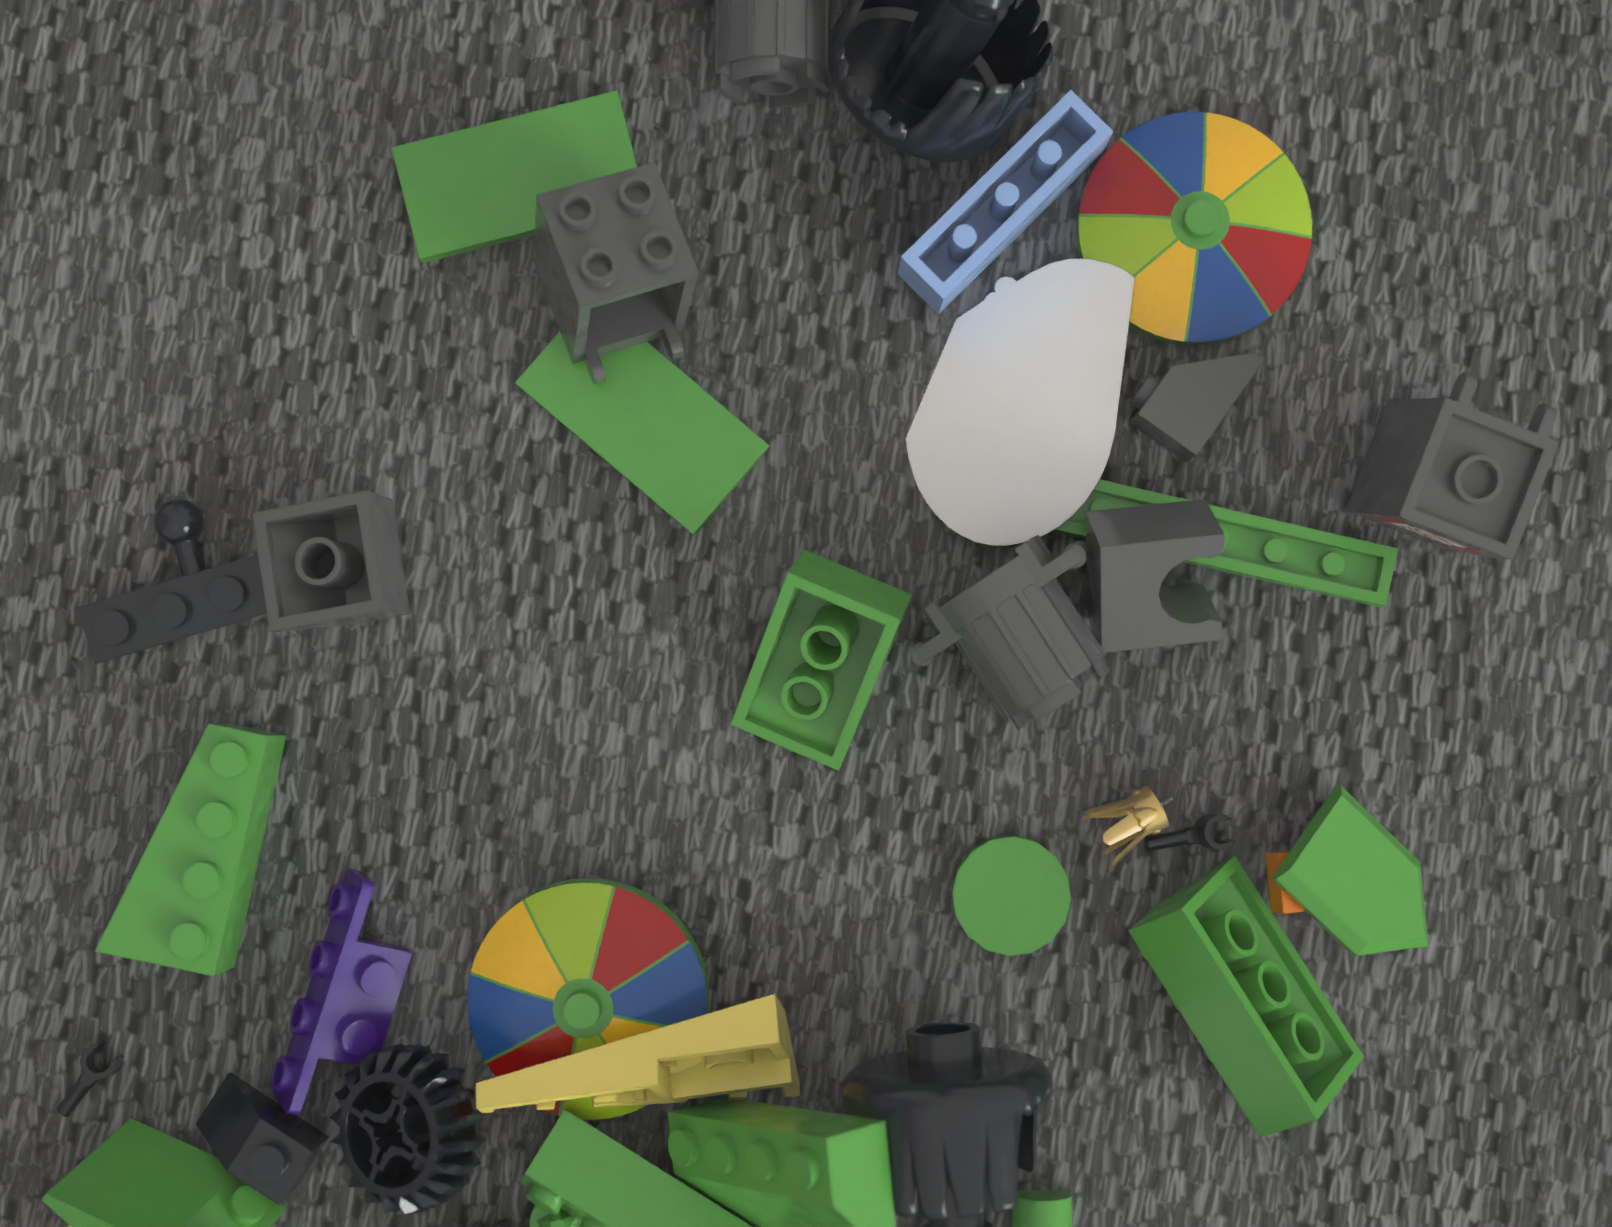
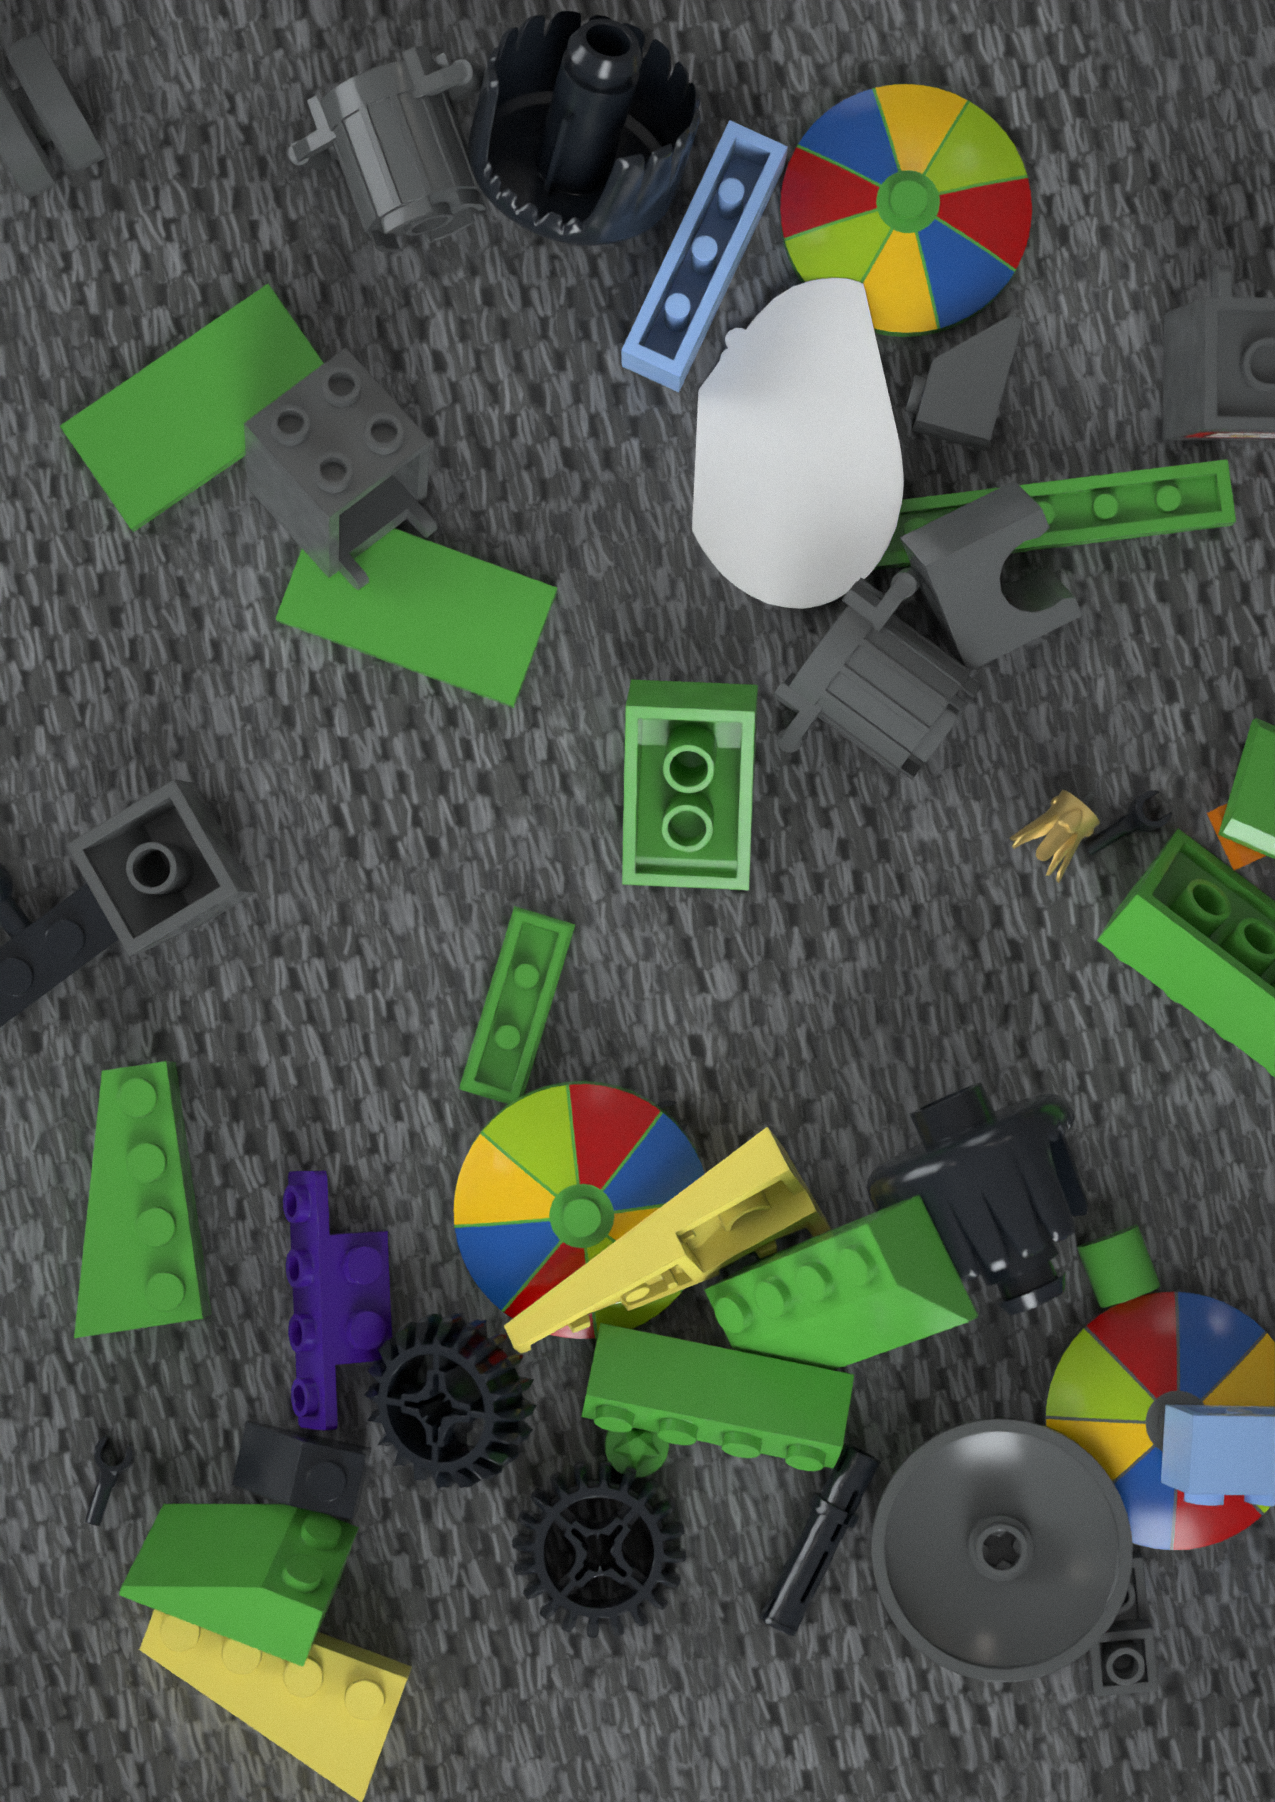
camera: 20 degrees left, 0 degrees up
(599, 797) = (517, 1006): none -> bright green tile
(1011, 895) = (968, 951): bright green tile -> none

